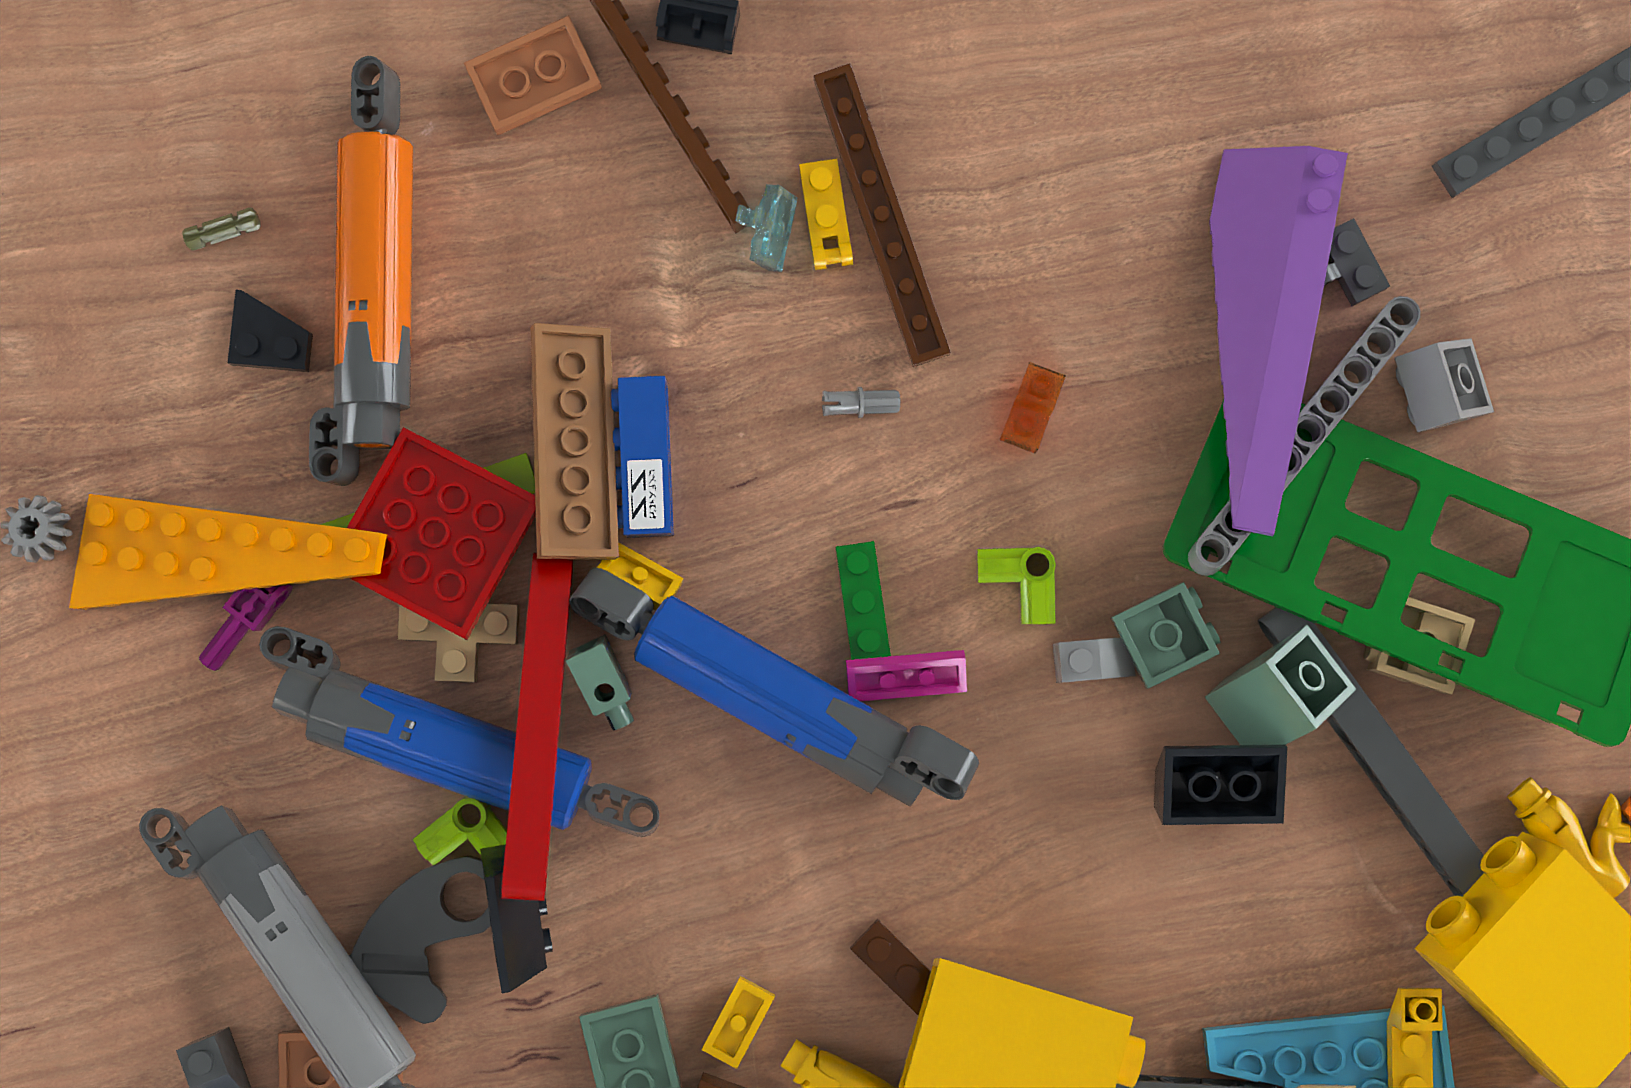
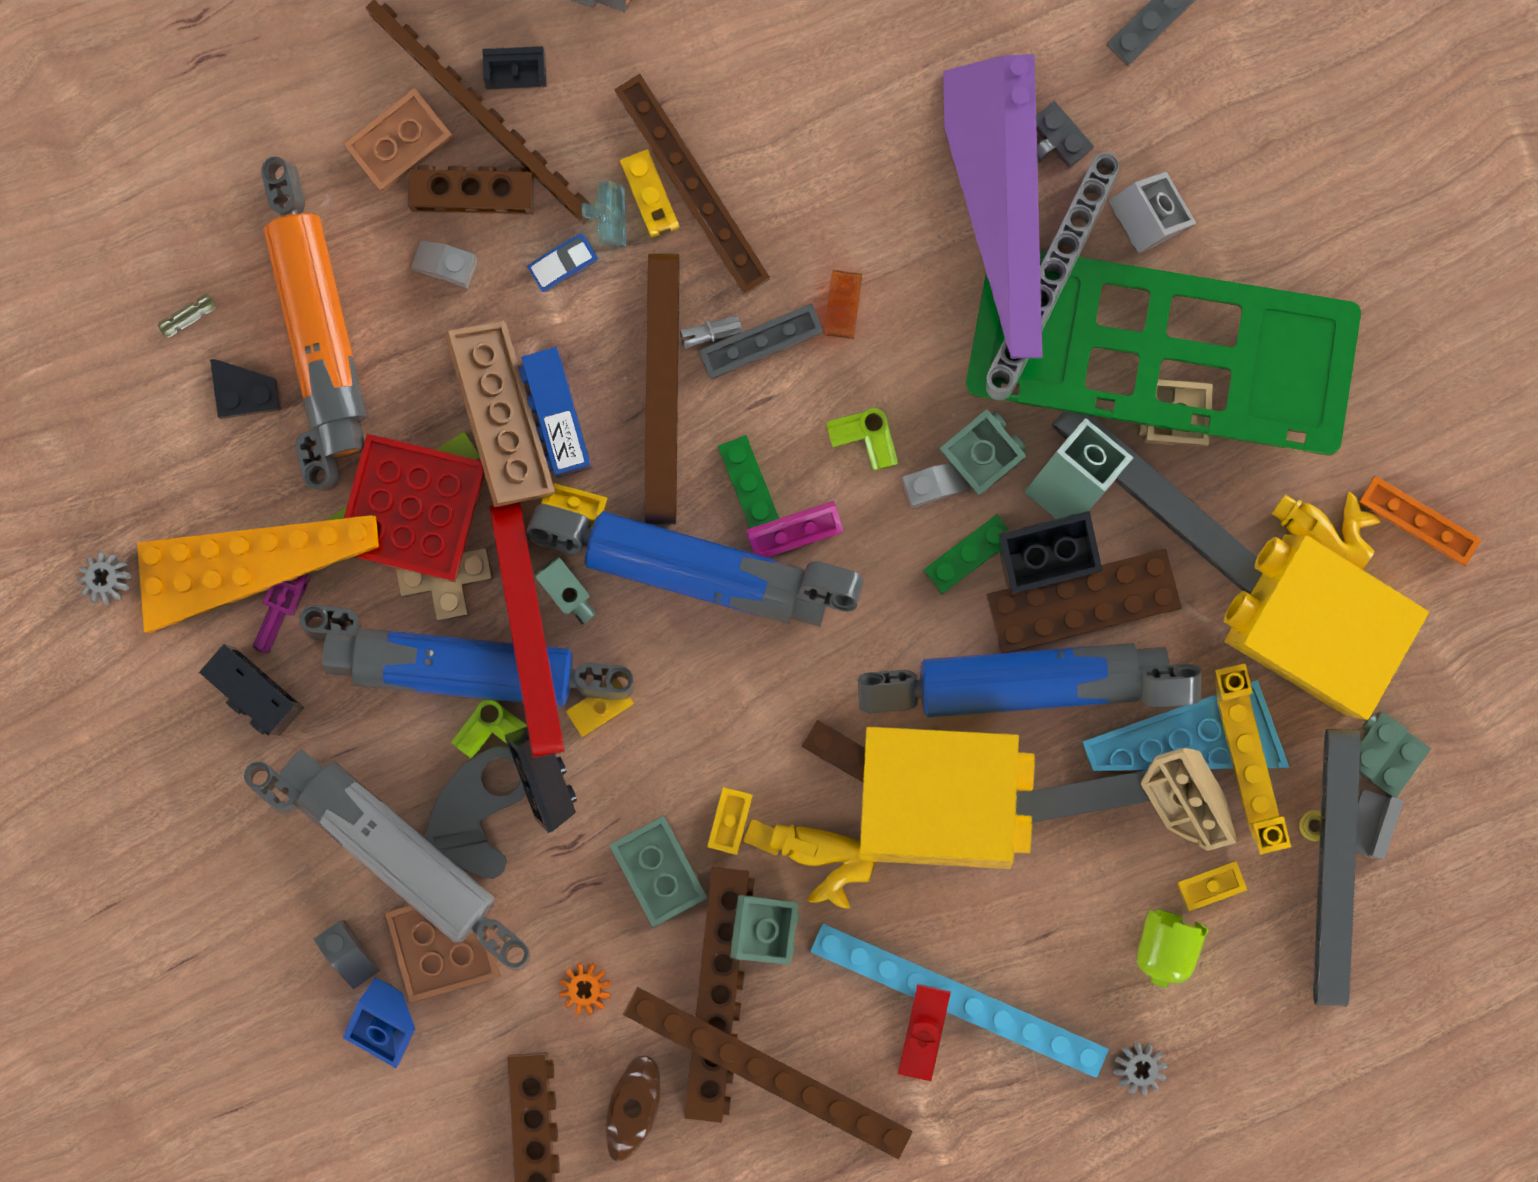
camera: 10 degrees left, 0 degrees up
(178, 715) = (251, 691): none -> black piece
(554, 240) = (445, 263): none -> light grey slope
(601, 843) = (595, 712): none -> yellow plate
(660, 184) = (517, 201): none -> reddish brown brick
(698, 273) = (562, 262): none -> slope
(772, 1048) = (760, 836): none -> yellow sticker
(783, 460) = (662, 388): none -> reddish brown beam
(920, 429) = (761, 341): none -> dark grey plate
(1114, 757) = (966, 555): none -> green plate
(1166, 943) = (1034, 681): none -> piece
(1304, 854) = (1114, 596): none -> reddish brown plate

